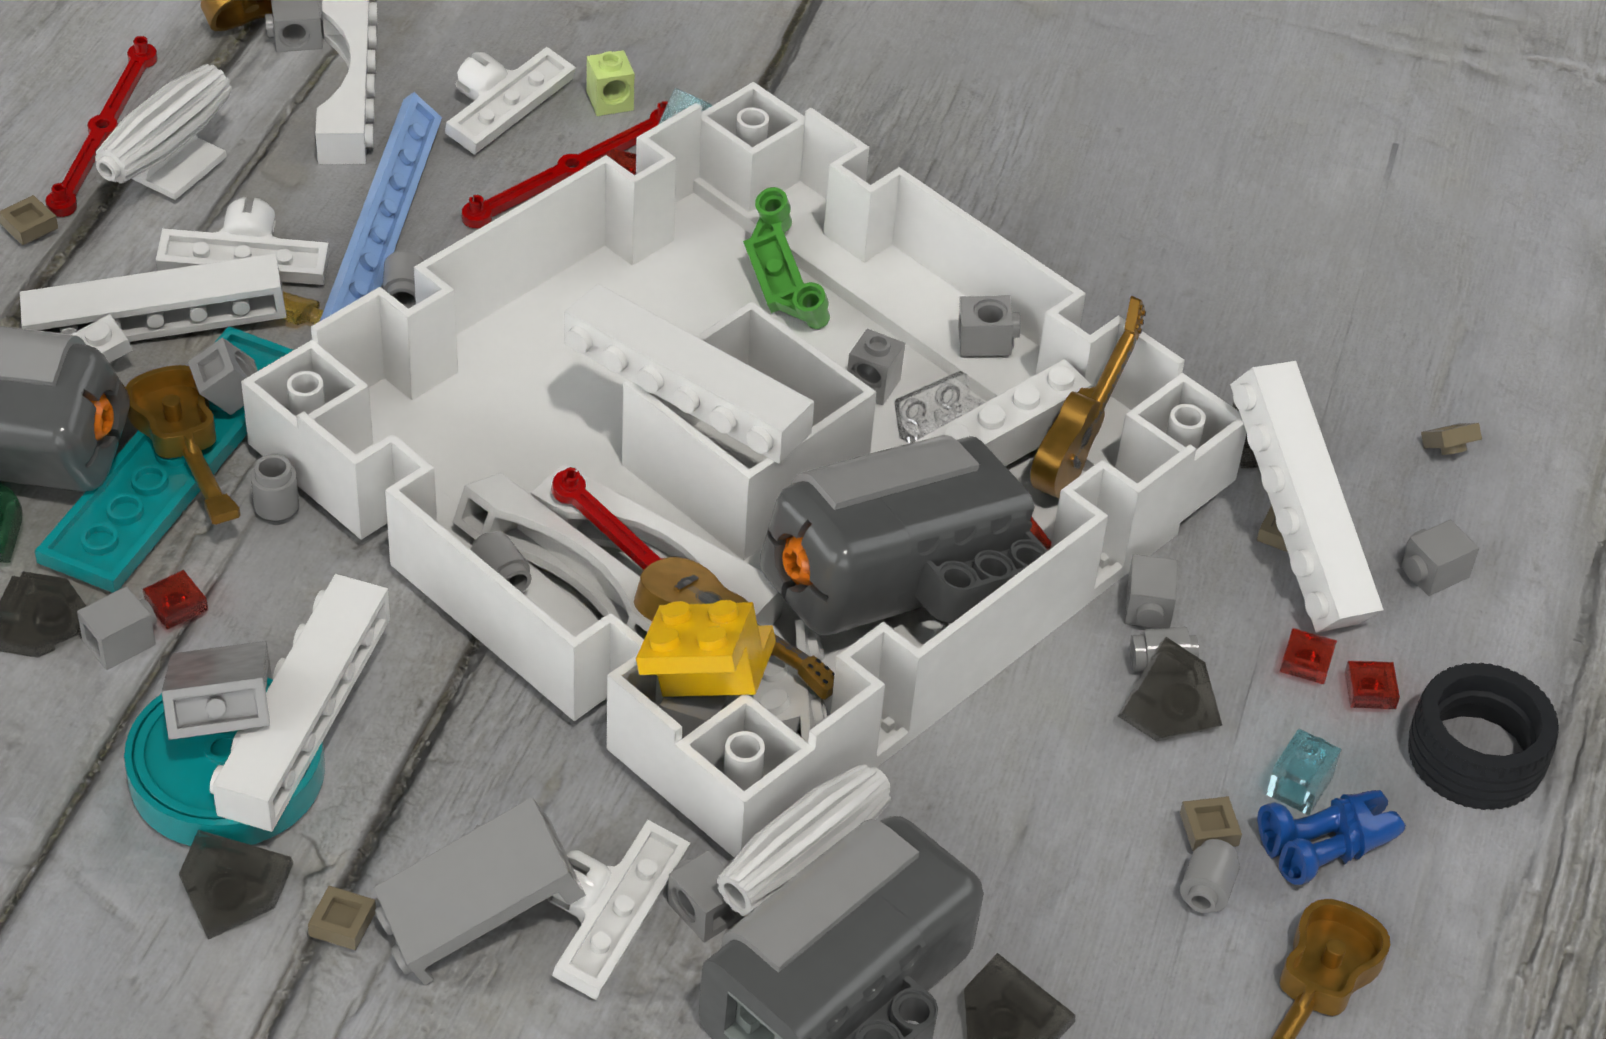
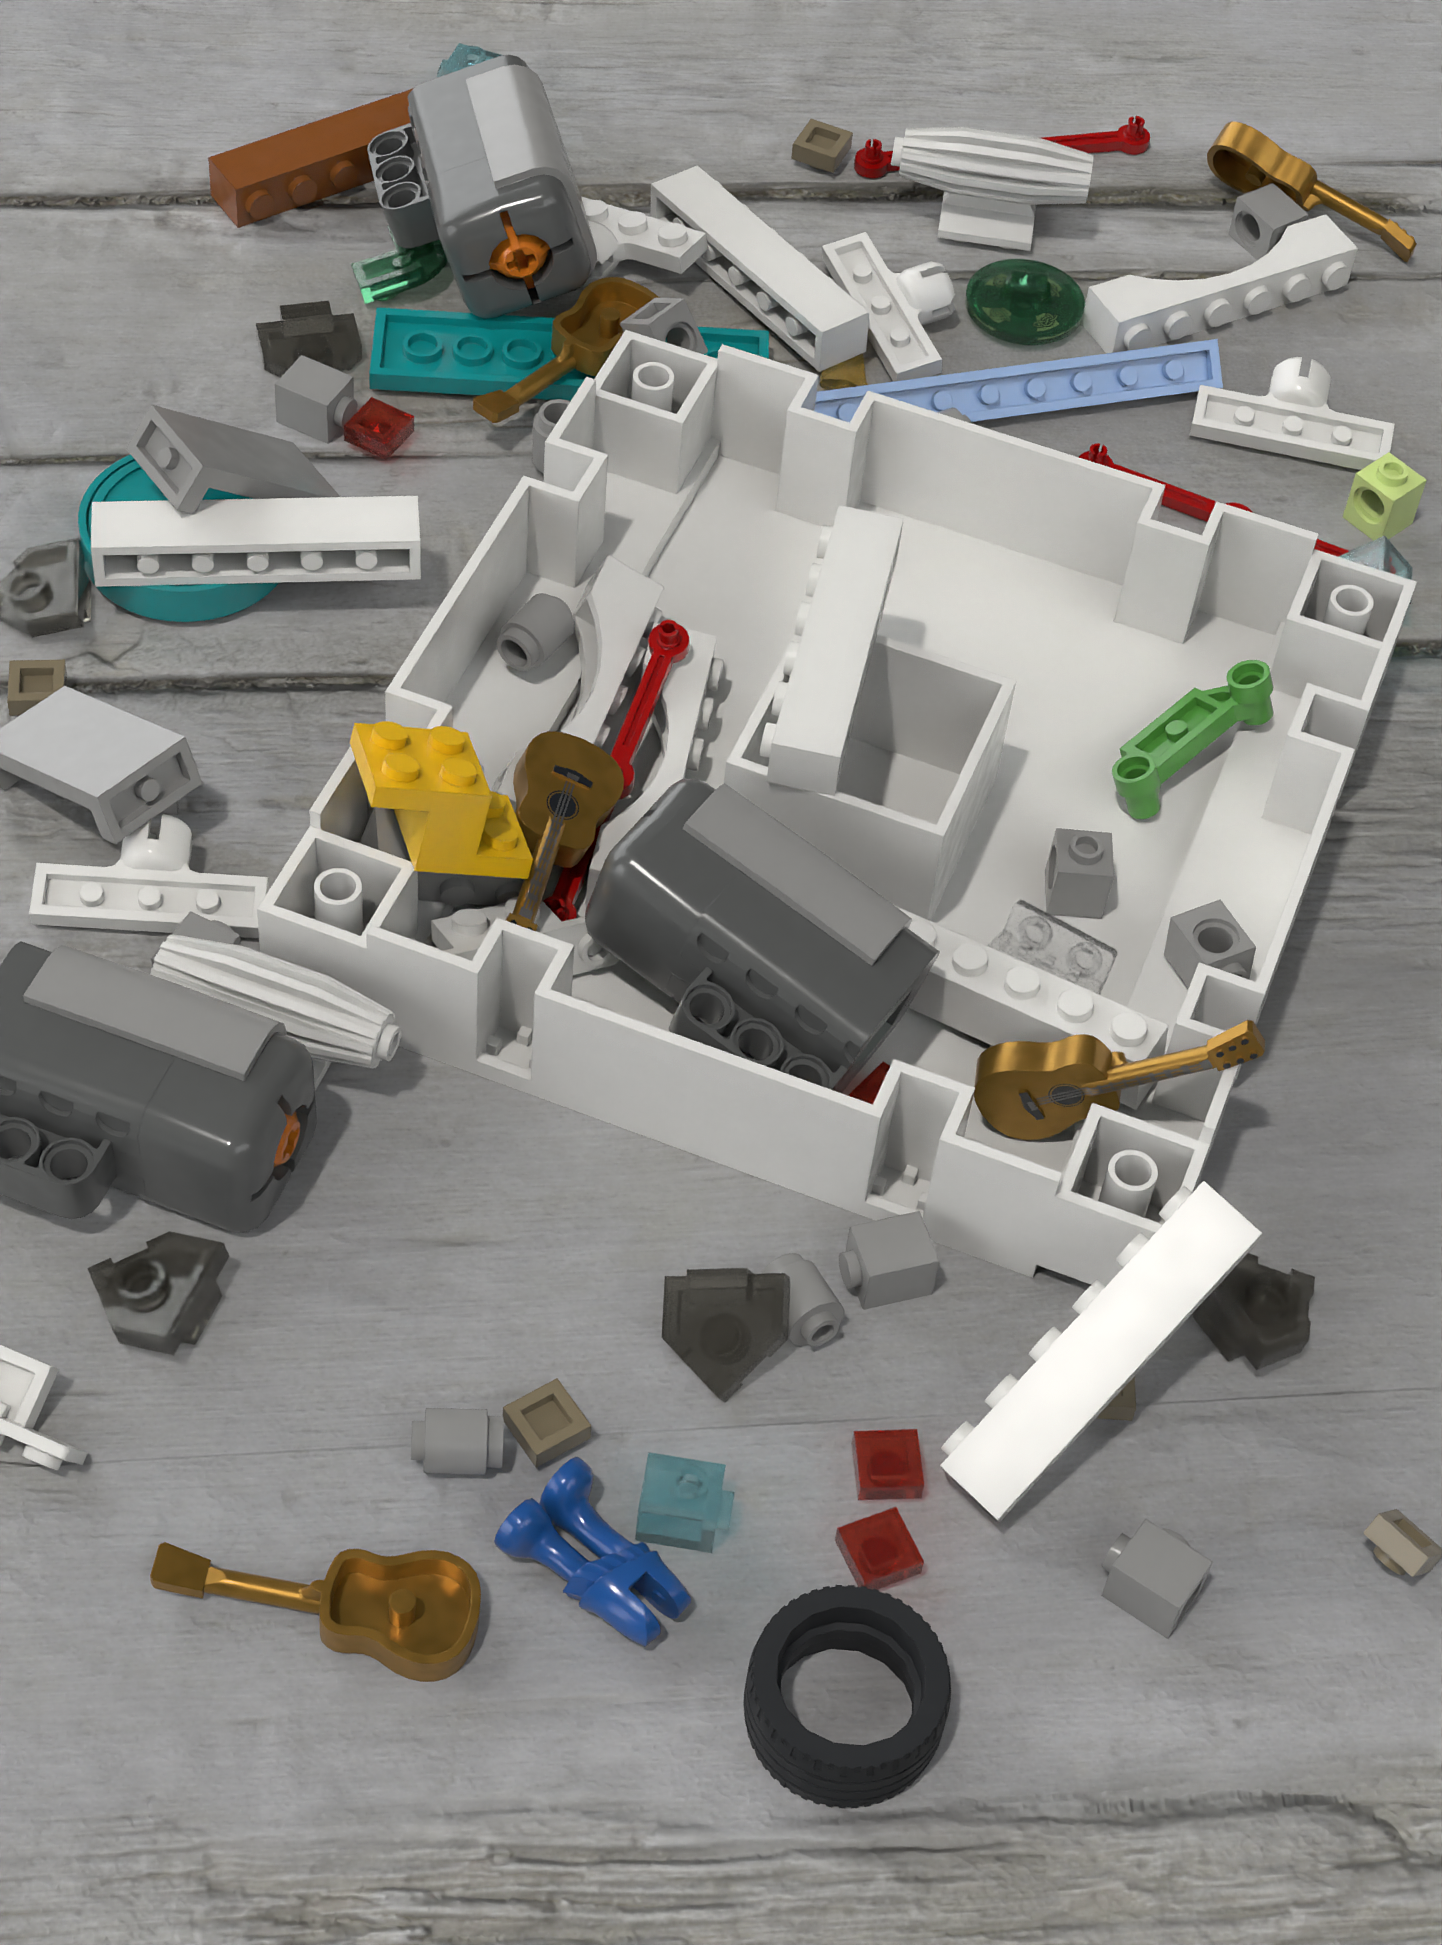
camera: 65 degrees right, 5 degrees up
(285, 177) = (1024, 302): none -> clear green shield

